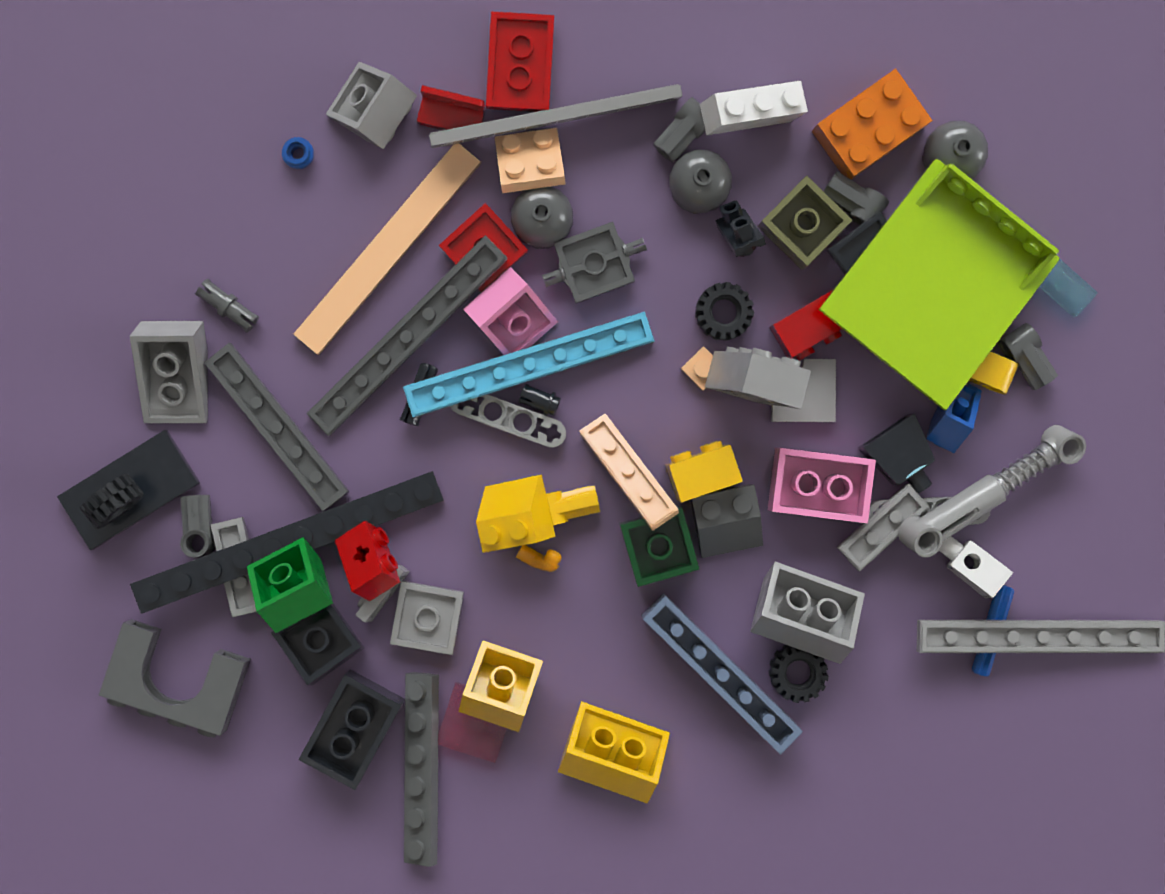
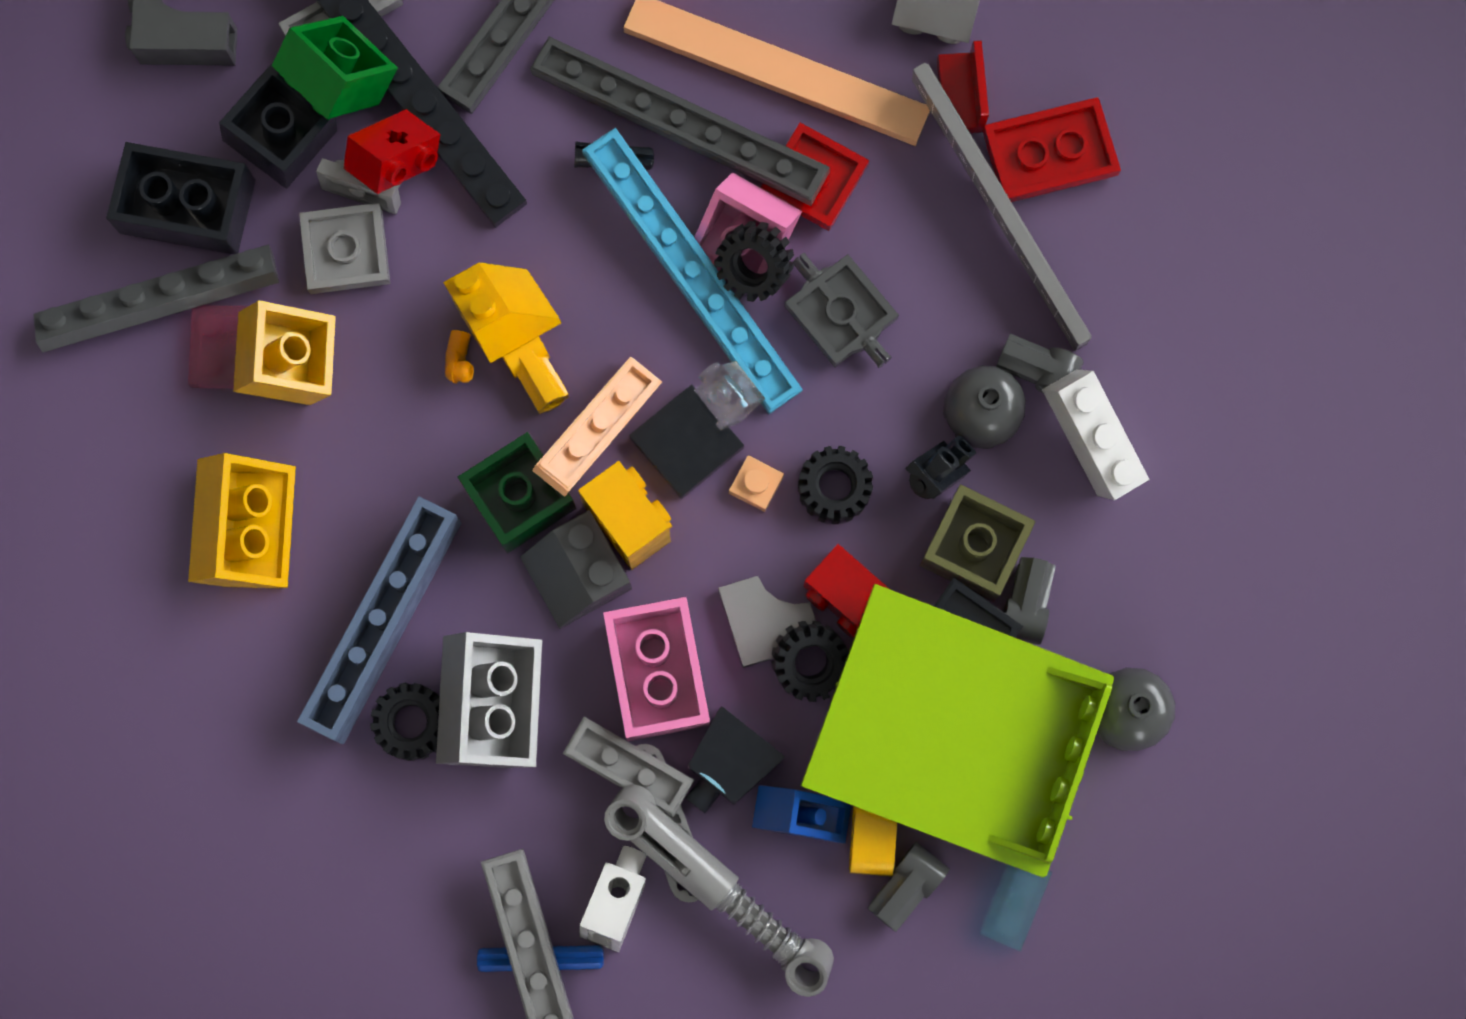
camera: 65 degrees right, 10 degrees down
(505, 422) = (614, 269): light grey beam -> none
(529, 160) = (937, 194): light nougat plate -> none
(531, 306) = (768, 246): none -> black tyre
(538, 229) = (877, 232): dark grey cylinder -> none
(539, 399) = (652, 307): black pin -> none
(632, 367) = (739, 393): none -> clear brick
(655, 409) = (685, 442): none -> black tile
(758, 377) = (762, 538): light grey brick -> none
(864, 367) = (792, 644): none -> black tyre
(871, 125) = (1127, 590): orange brick -> none

